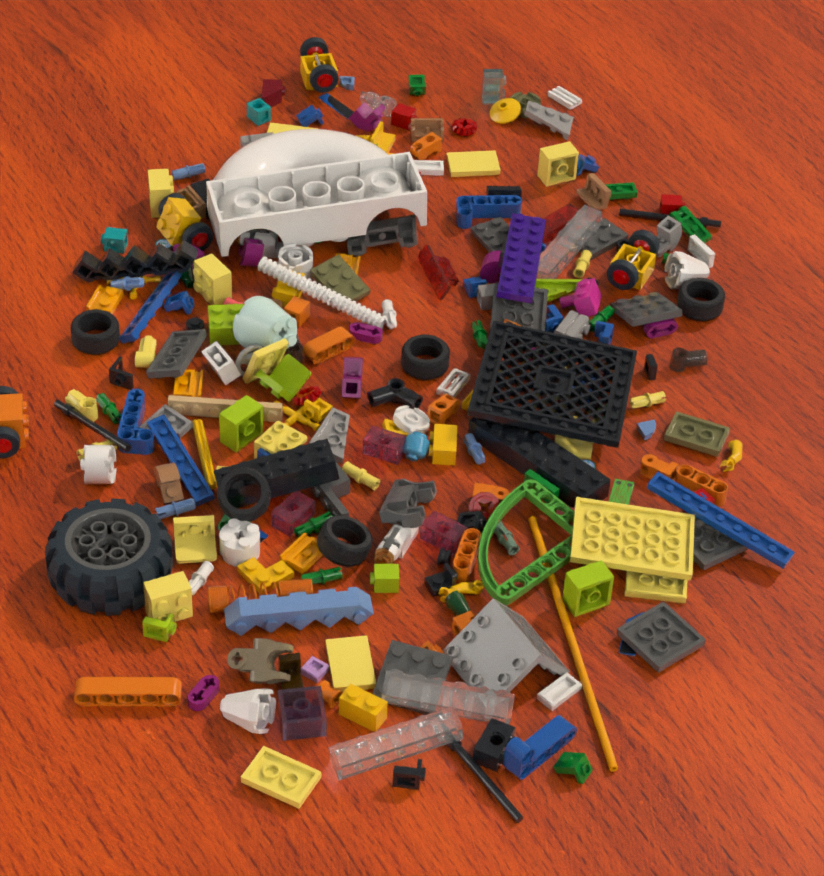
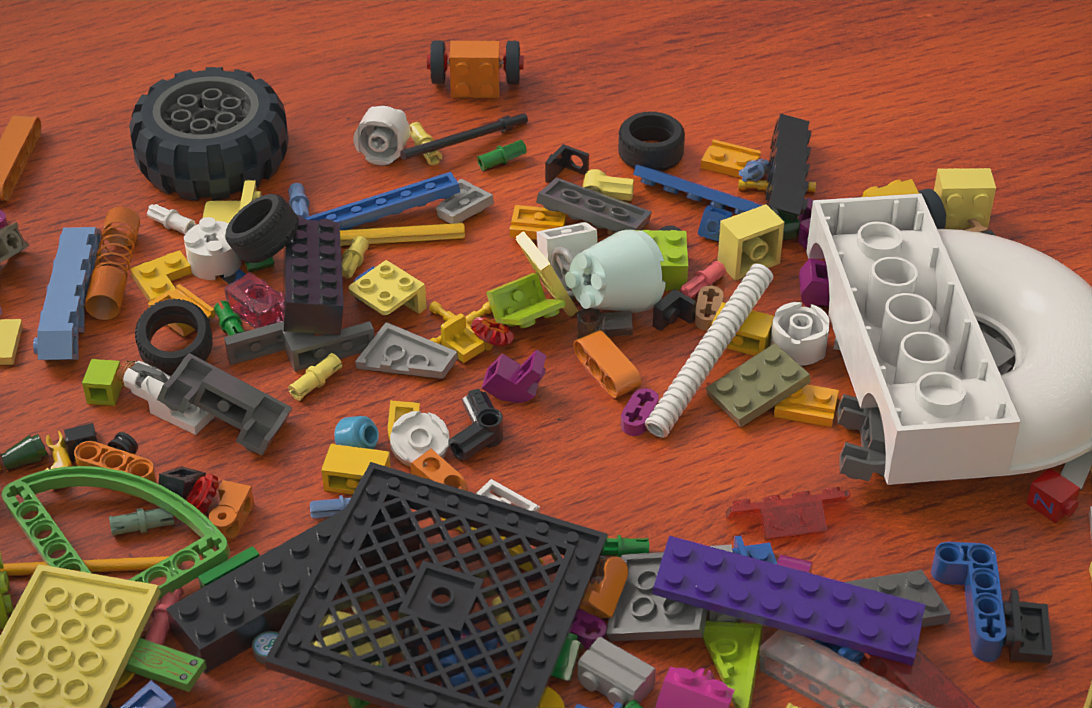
camera: 100 degrees right, 0 degrees up
(85, 405) = (506, 132): light yellow piece -> none
(115, 239) = (859, 165): teal brick -> none
(140, 439) = (480, 170): blue beam -> none
(159, 629) = (96, 182): lime bracket -> none
(168, 480) = (343, 187): medium nougat brick -> none
(168, 595) = (125, 177): light yellow brick -> none
(188, 171) = (1040, 240): medium blue axle -> none
(213, 407) = (476, 259): tan plate -> none
(241, 423) = (431, 254): lime brick -> none
(298, 309) = (685, 332): orange brick -> none
(323, 576) = (131, 316): green axle -> none
(384, 444) = (371, 398): clear pink brick -> none
(390, 314) = (680, 441): white axle -> none
(422, 368) = (560, 445): black tyre -> none
(442, 532) = (172, 446): clear pink brick -> none
(553, 318) = (653, 651): blue bracket -> none

